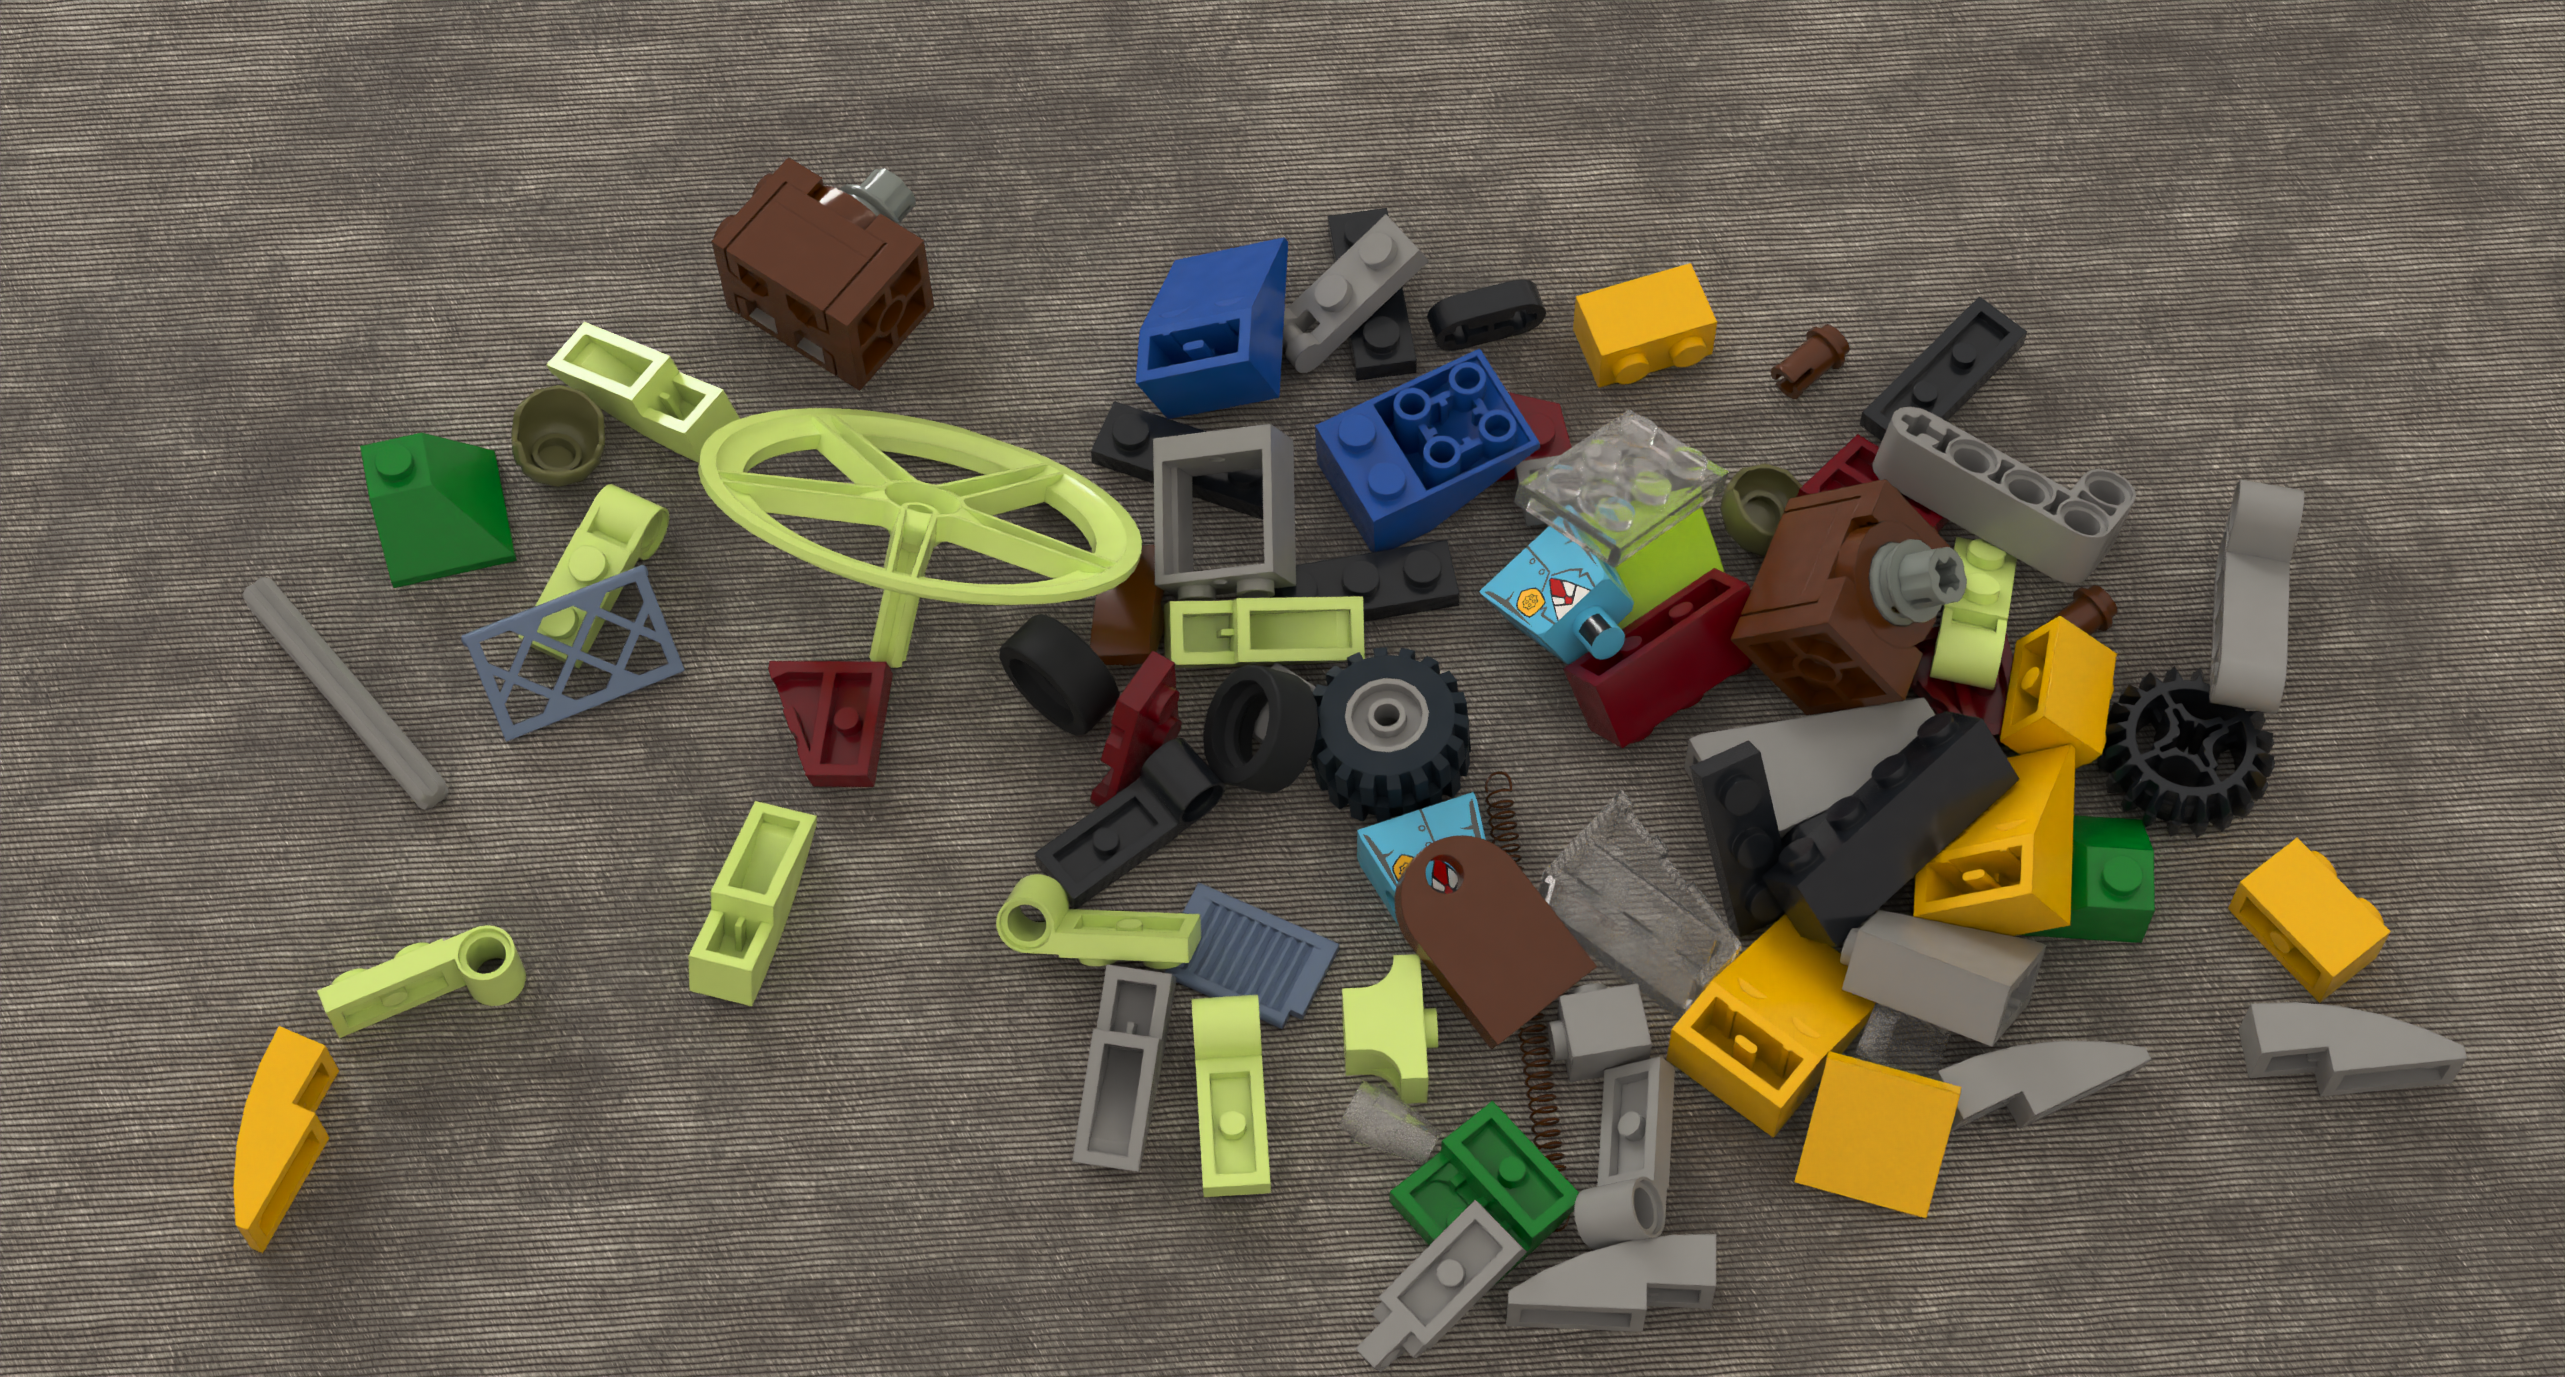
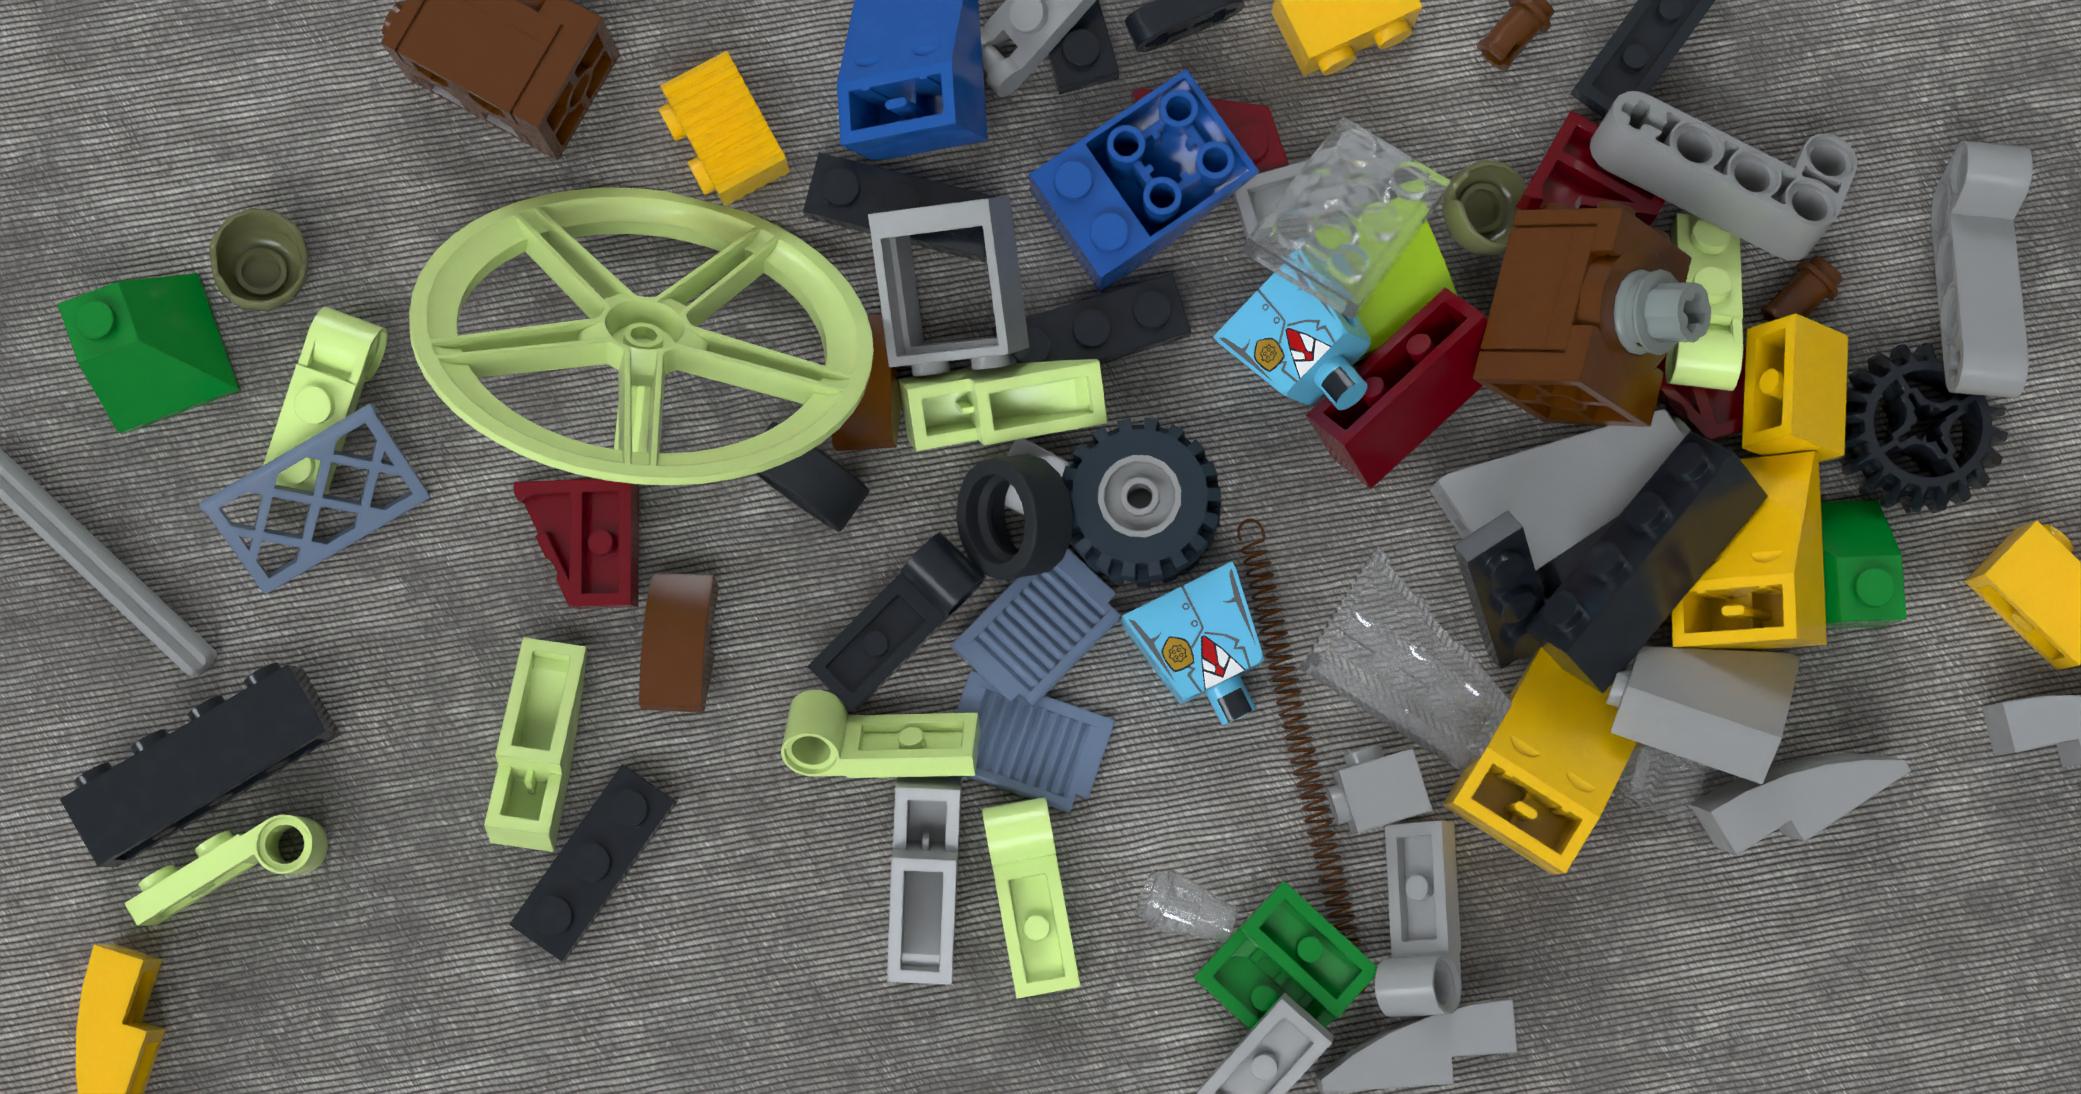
camera: 10 degrees left, 20 degrees up
(414, 883) = (199, 765): none -> black brick
(643, 389) = (339, 193): yellowish green slope -> none
(790, 1022) = (593, 863): none -> black plate
(906, 821) = (676, 642): none -> reddish brown slope
(1025, 371) = (724, 129): none -> yellow brick
(1140, 723) = (900, 516): dark red wing -> none
(1272, 848) = (1038, 630): none -> sand blue window
(1390, 1030) = (1179, 811): yellowish green brick -> none
(1490, 939) = (1266, 718): reddish brown tile -> none
(1877, 1134) = (1655, 873): yellow tile -> none

